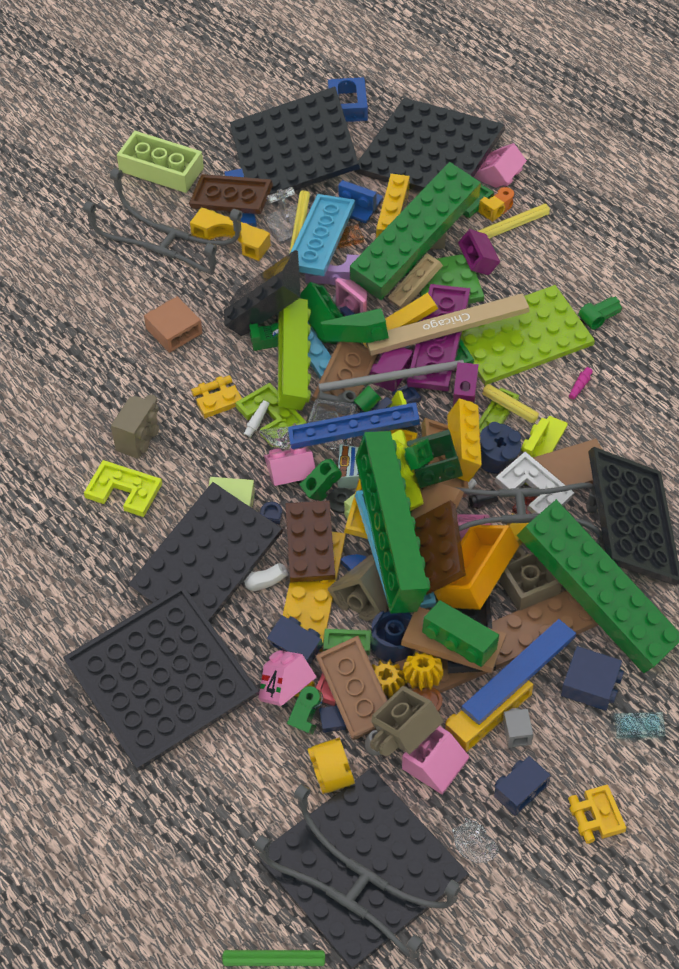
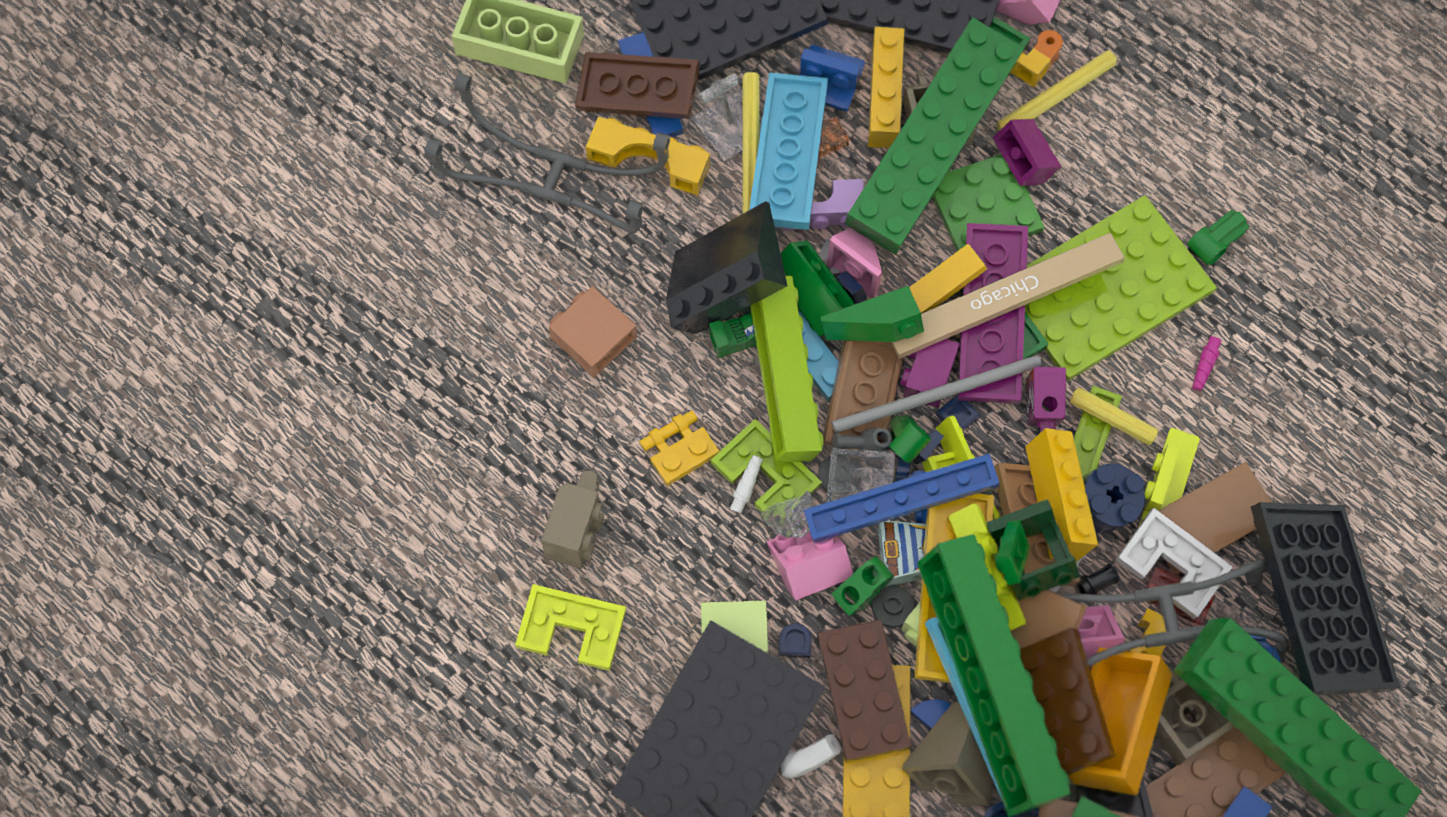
camera: 10 degrees left, 15 degrees up
(415, 281) = (941, 216): tan plate -> none

